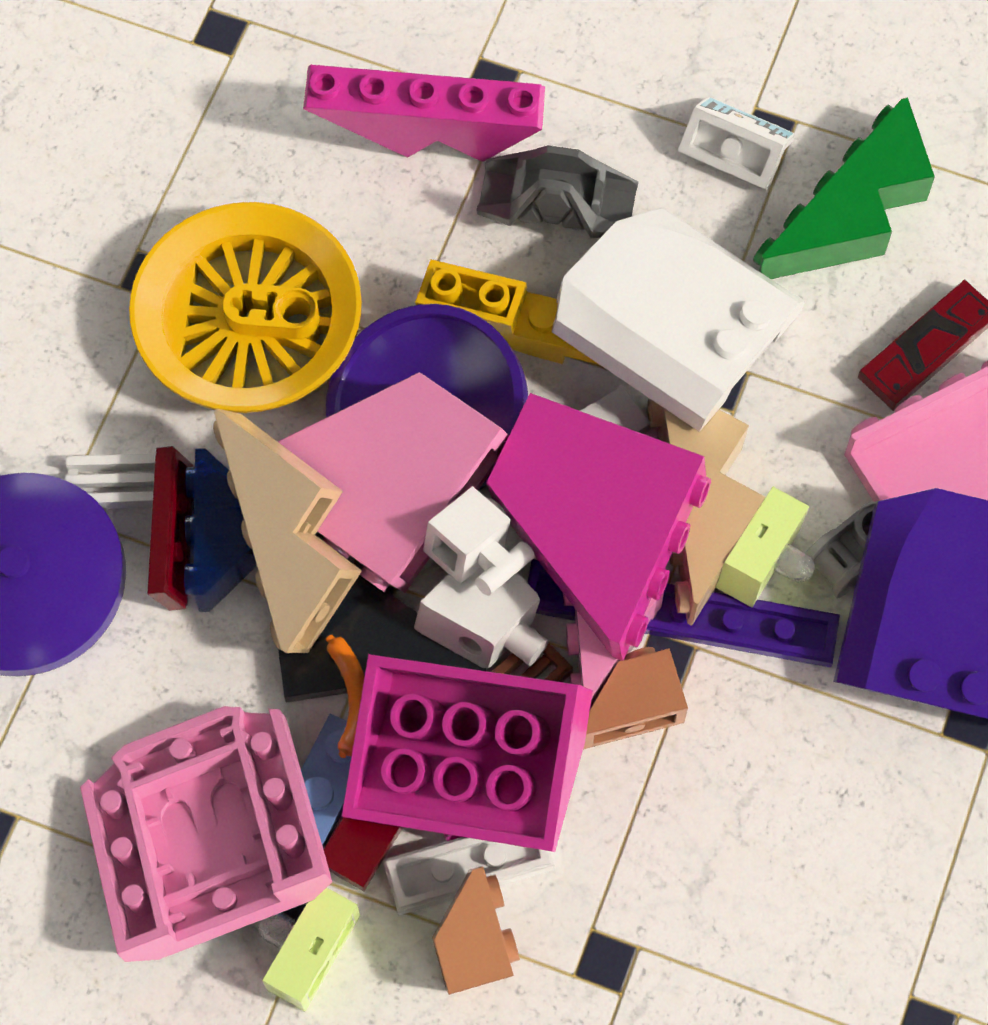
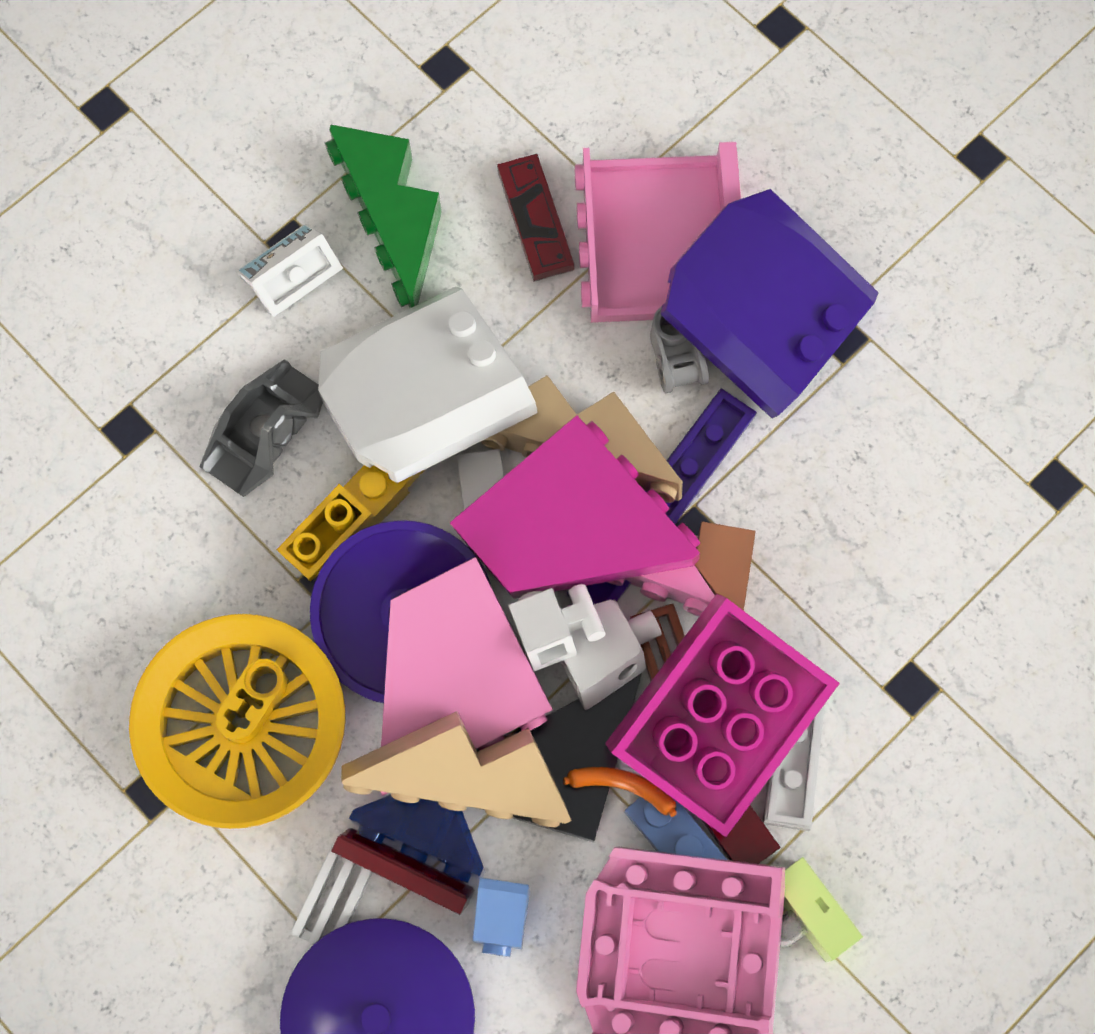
camera: 65 degrees left, 5 degrees up
(165, 635) = (500, 916): none -> medium blue slope
(419, 109) = (136, 493): dark pink slope -> none
(470, 938) = (860, 781): nougat slope -> none
(767, 549) = (653, 409): yellowish green piece -> none

